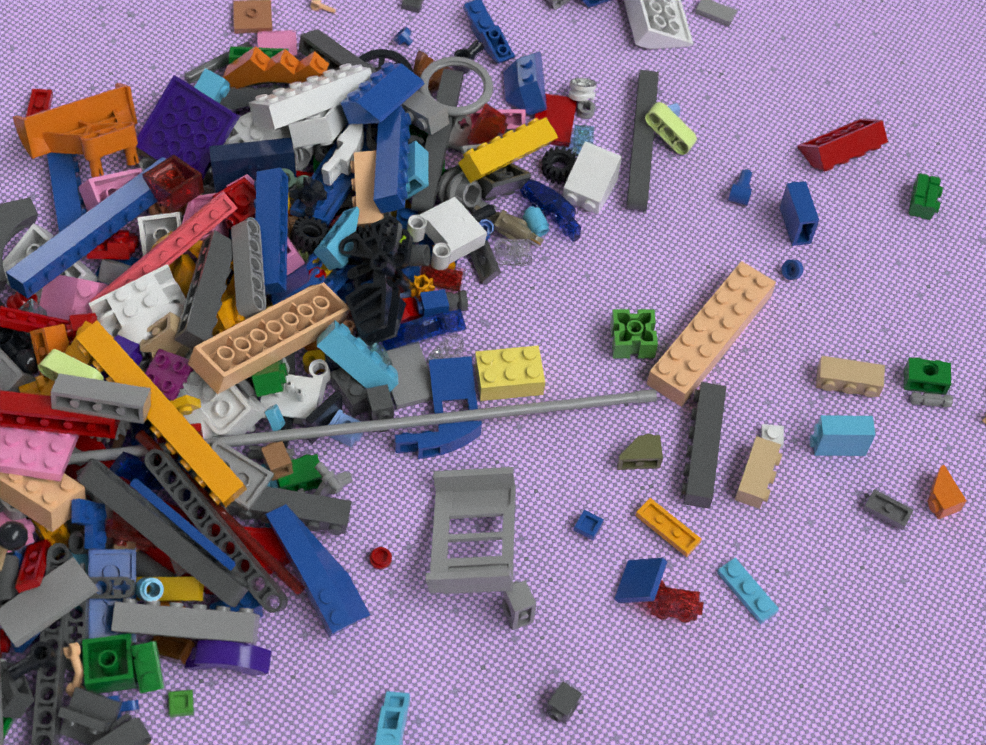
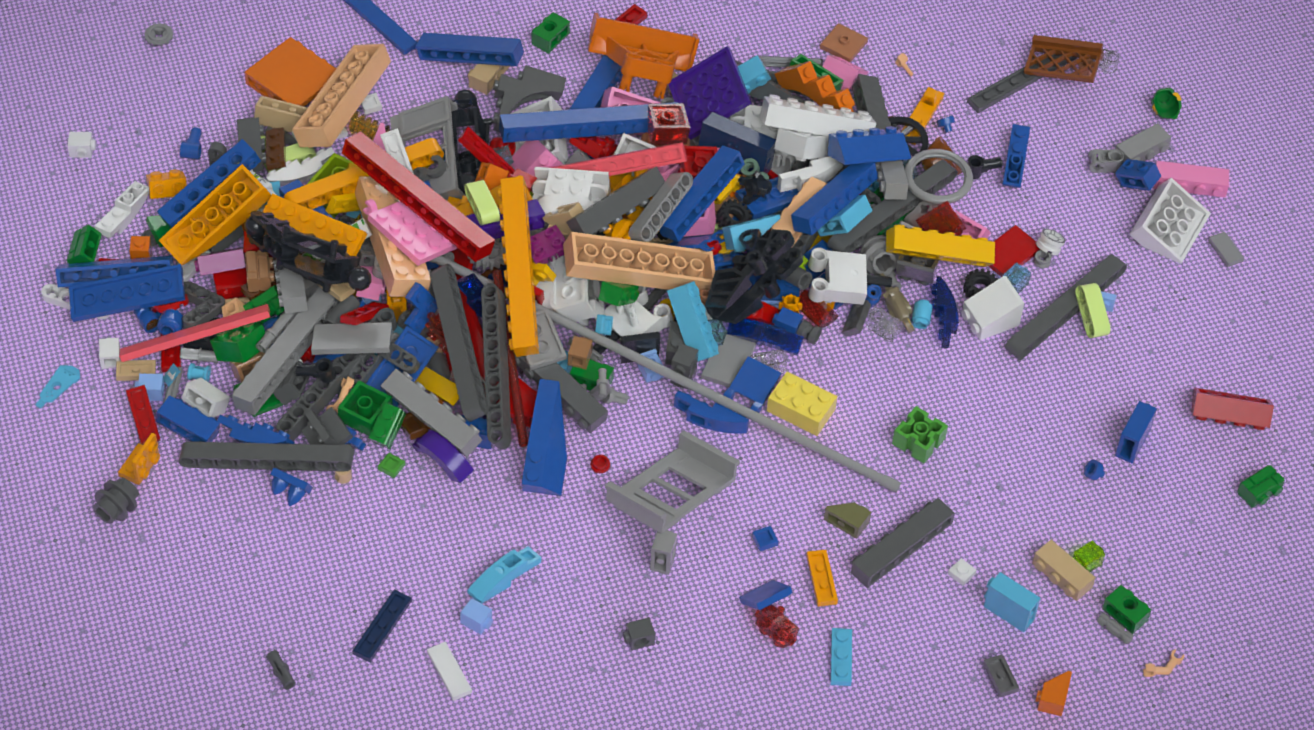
camera: 40 degrees right, 5 degrees down
(101, 398) = (483, 227): light grey brick -> none
(155, 592) = (424, 369): medium azure brick -> none
(183, 524) = (476, 346): blue tile -> none
(373, 34) = (925, 109): none -> light orange hinge
(525, 84) = (1011, 211): blue wedge -> none
(711, 333) = (983, 472): light nougat brick -> none
(742, 190) = (1110, 391): blue pin -> none
(759, 472) = (924, 586): tan brick -> none
(859, 348) = (1090, 556): none -> clear neon green brick

